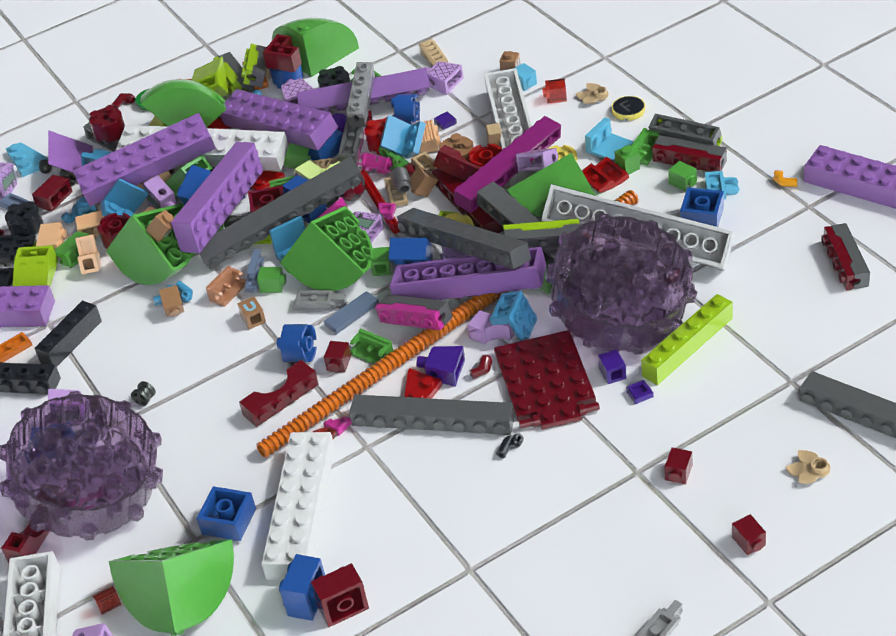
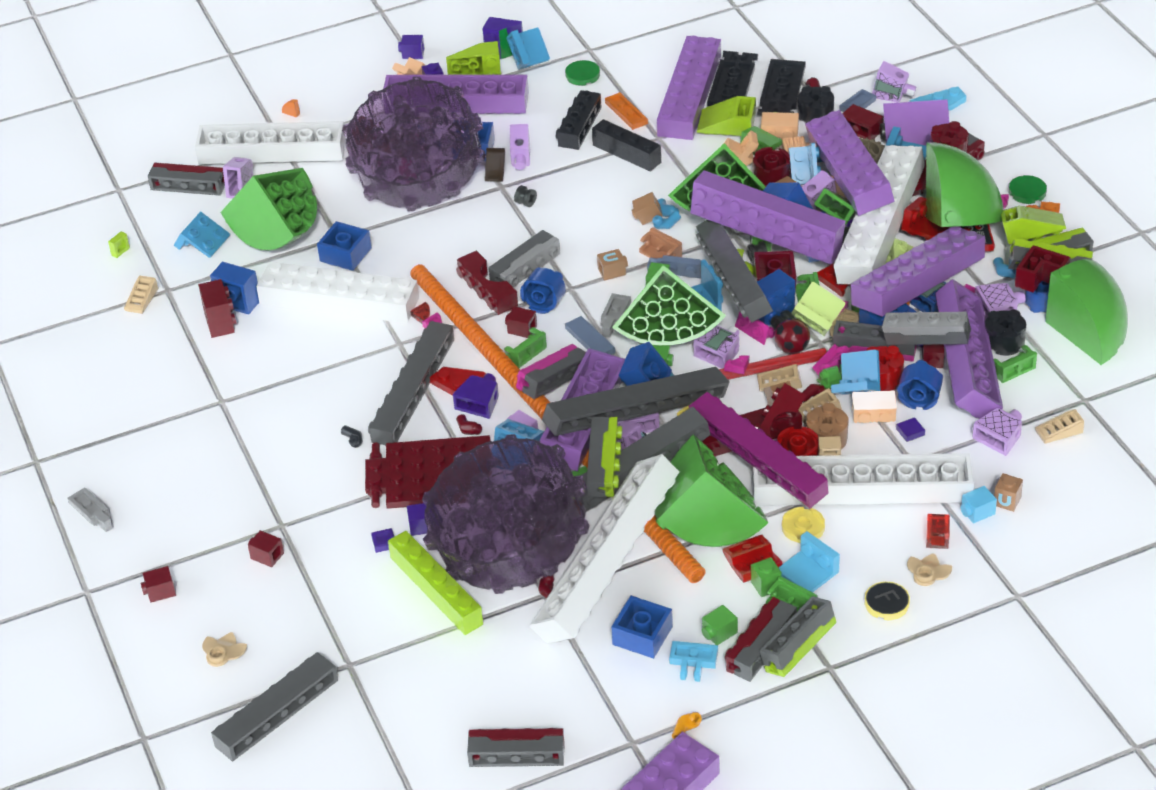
camera: 95 degrees right, 0 degrees up
(123, 98) = (1031, 165): dark red arm -> none
(160, 226) = (713, 166): medium nougat brick -> none
(244, 371) = (525, 259): none -> light grey piece
(401, 179) = (781, 372): flat silver brick -> none
(542, 157) = (745, 470): lavender torso -> none

